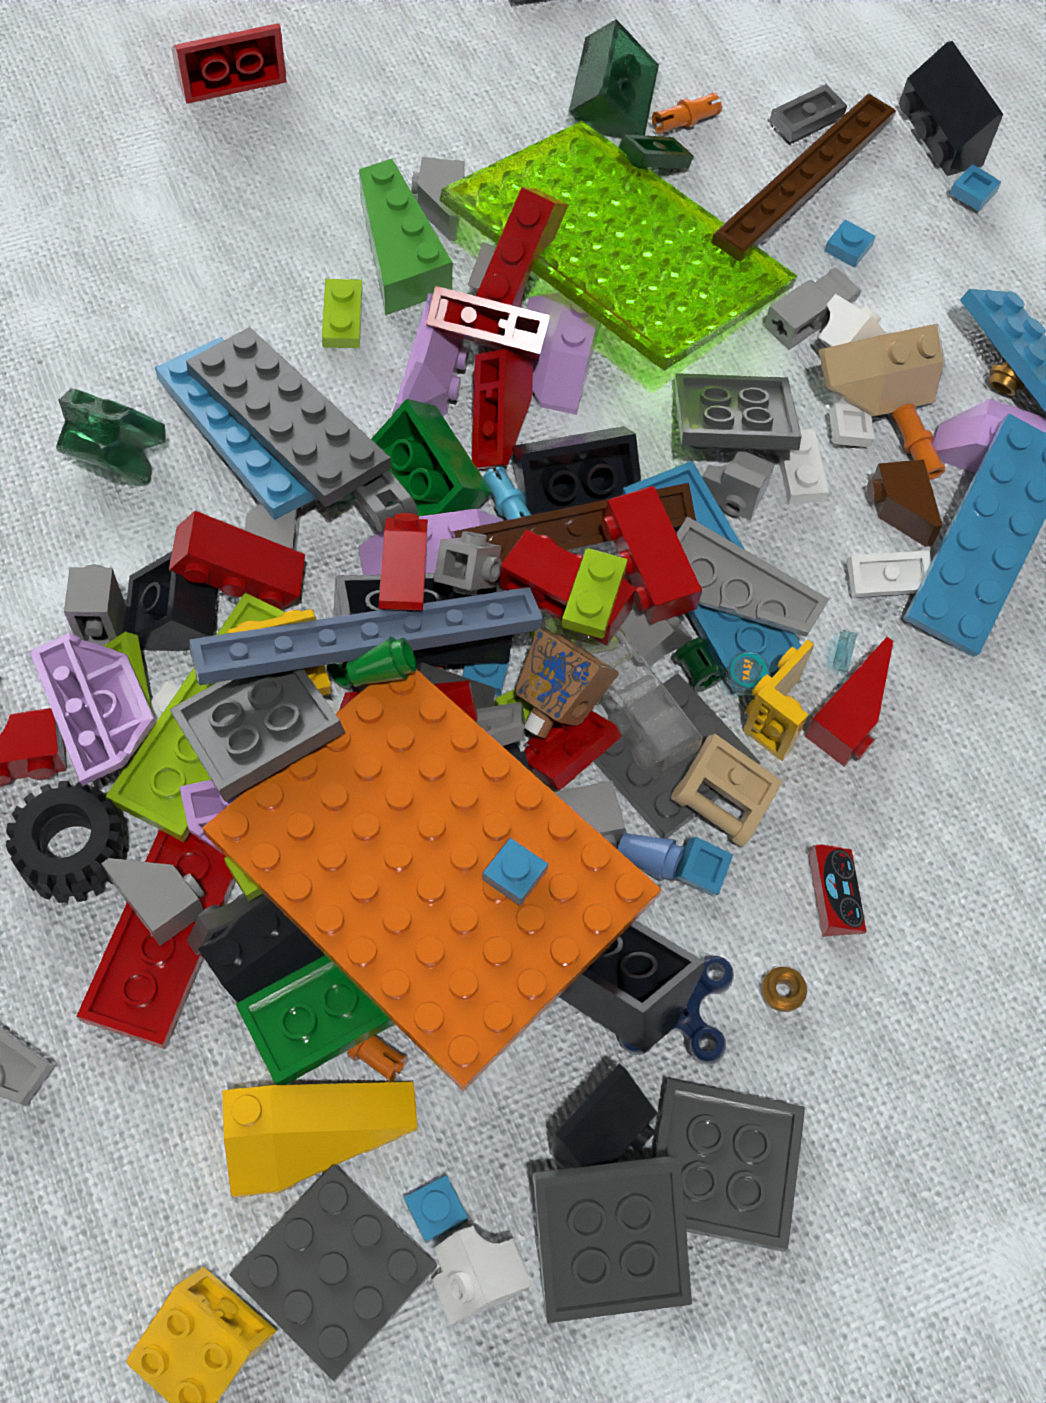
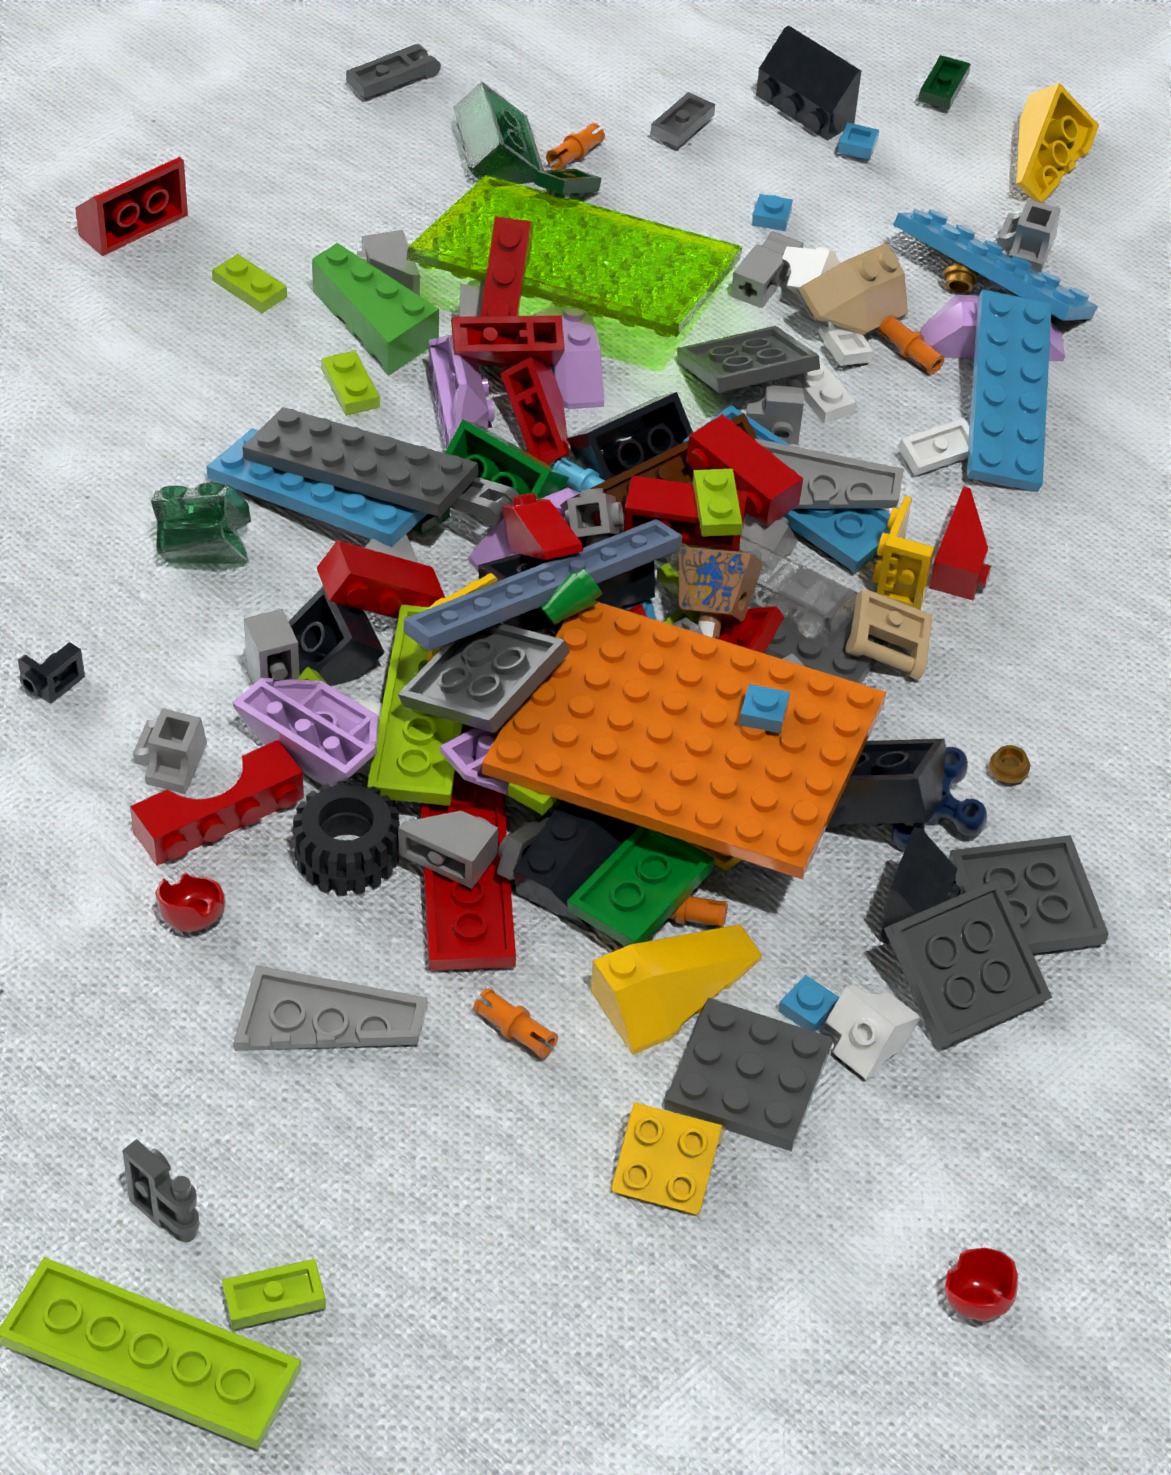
camera: 20 degrees left, 15 degrees down
(127, 1121) = (515, 1023): none -> orange pin
(303, 174) = (249, 283): none -> lime plate
(699, 664) = (815, 555): dark green bush -> none
(703, 866) = (901, 698): dark azure plate -> none
(746, 671) = (861, 546): clear light blue tile -> none
(802, 177) = (707, 169): reddish brown tile -> none
(836, 891) = (1013, 686): slope -> none
(844, 650) = (931, 512): clear light blue tile -> none
(906, 499) = (924, 388): reddish brown slope -> none

